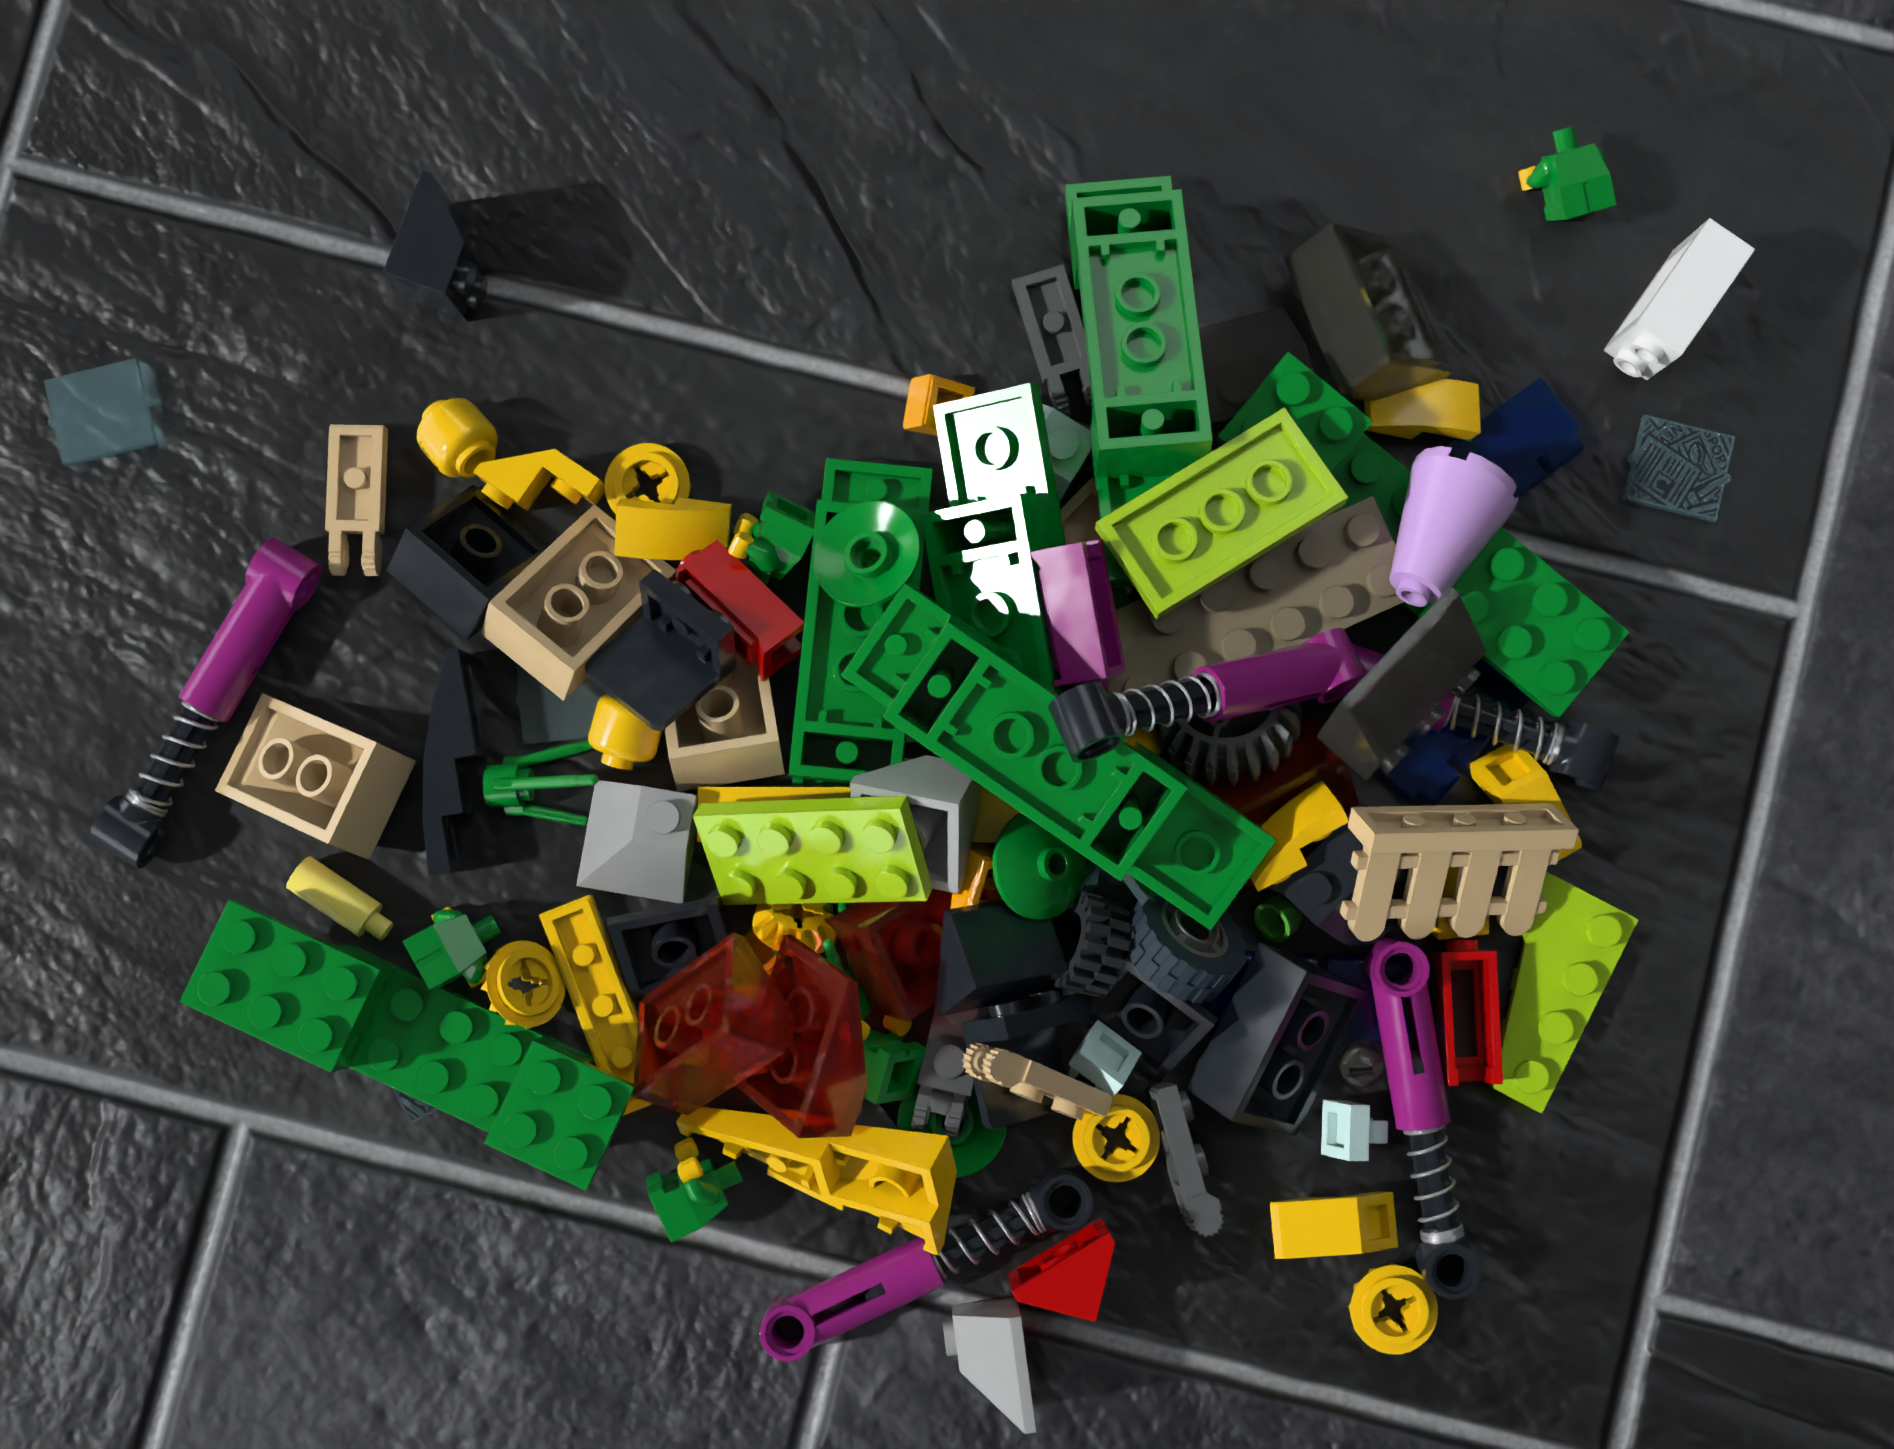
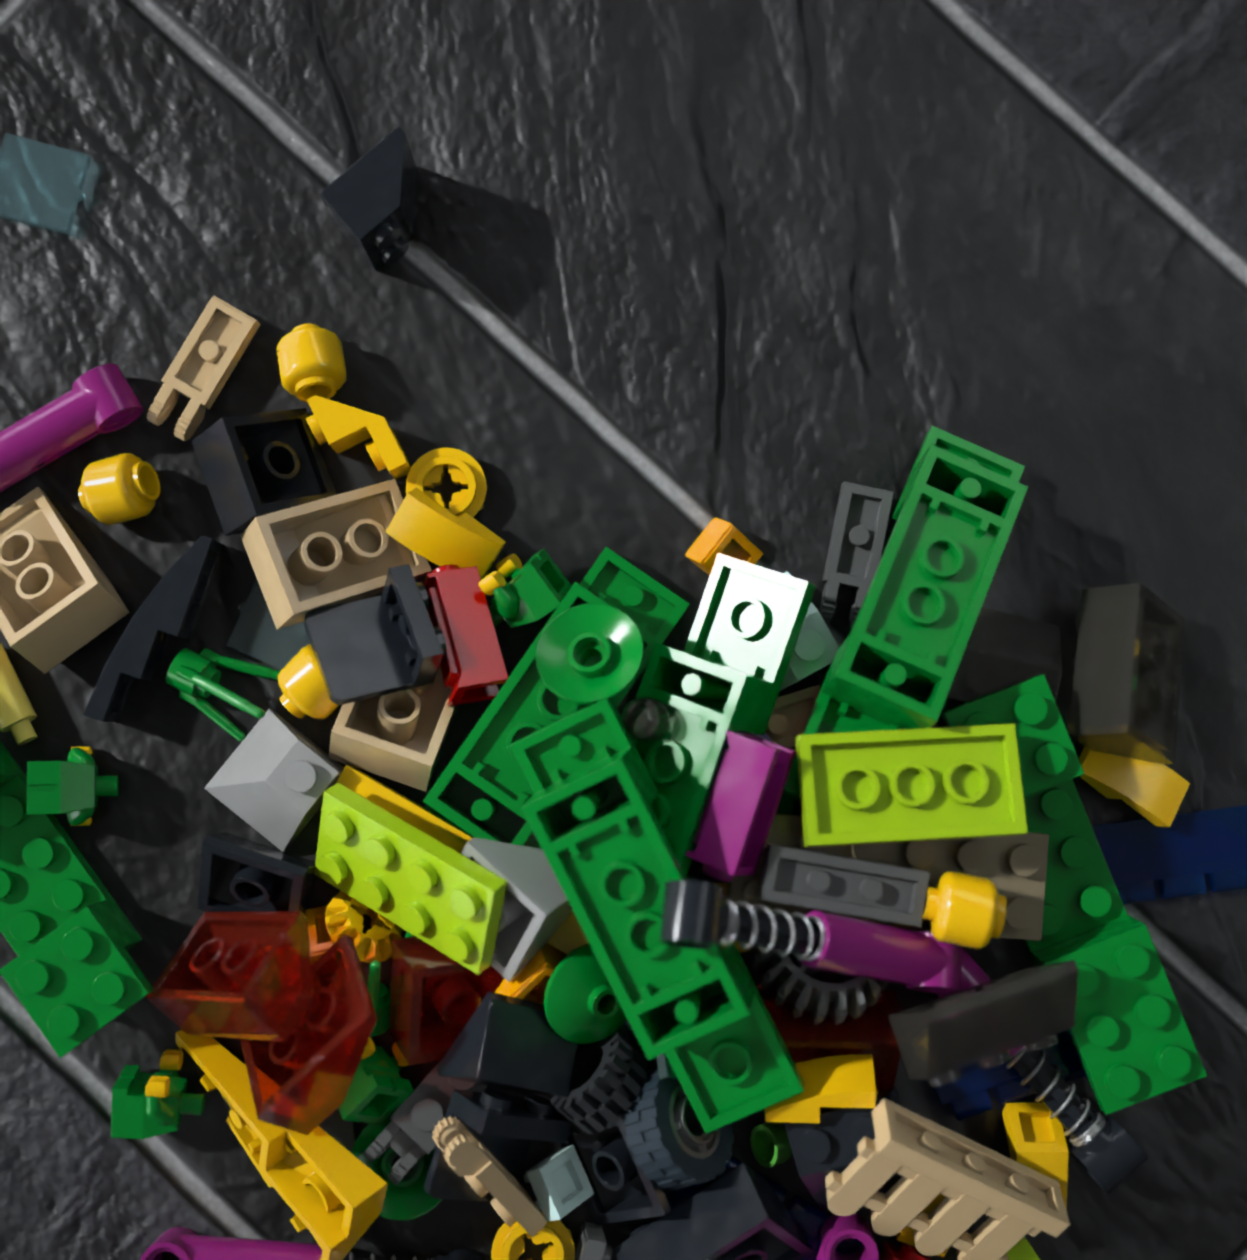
camera: 30 degrees right, 0 degrees up
(342, 651) = (119, 488): none -> yellow head
(534, 965) = (118, 871): yellow gear -> none
(595, 987) = (171, 882): yellow tile -> none
(957, 586) = (651, 722): none -> clear smoke hinge
(1210, 635) = (843, 884): none -> dark grey plate
(1330, 599) = (965, 910): none -> yellow head
(1447, 521) = (1100, 895): lavender cone -> none

